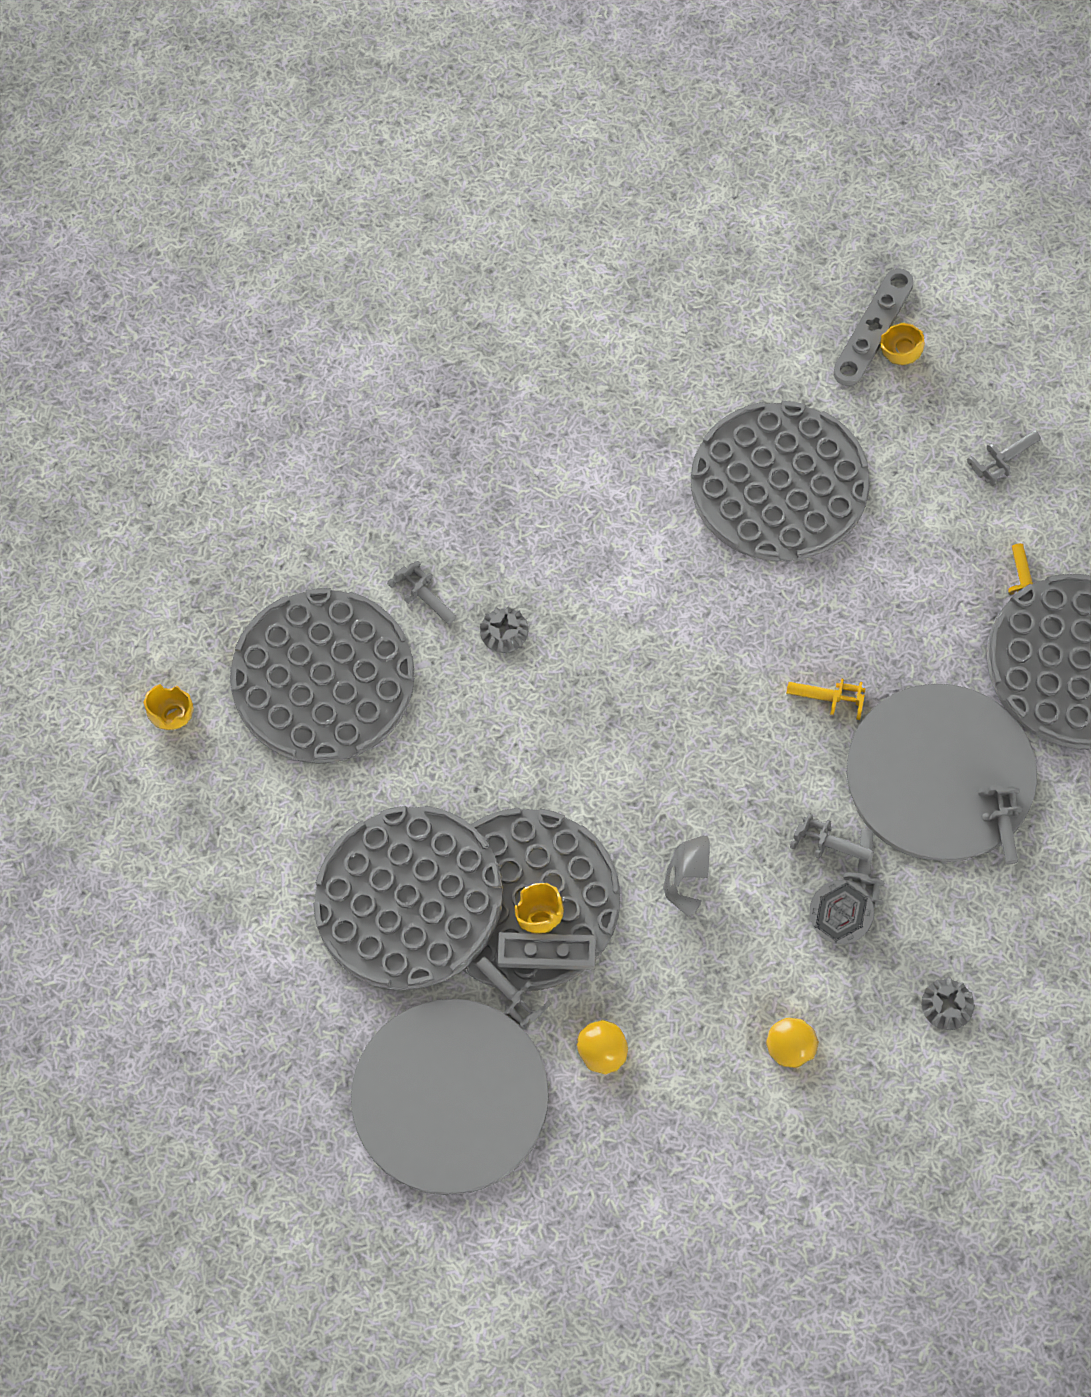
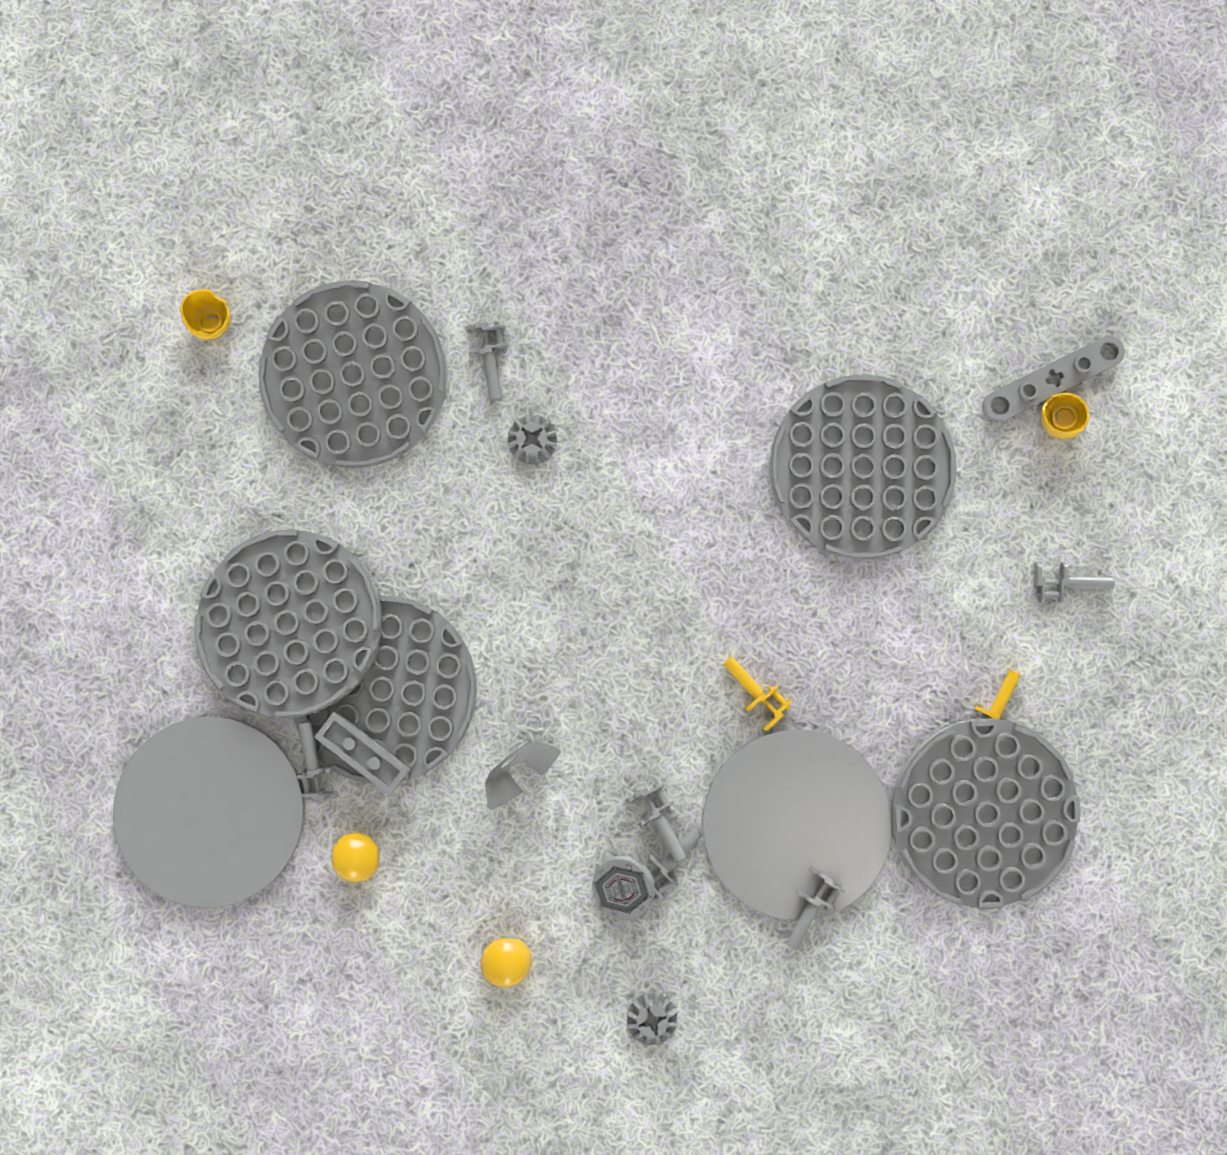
camera: 25 degrees right, 20 degrees up
(539, 908) = (378, 715): yellow hair -> none

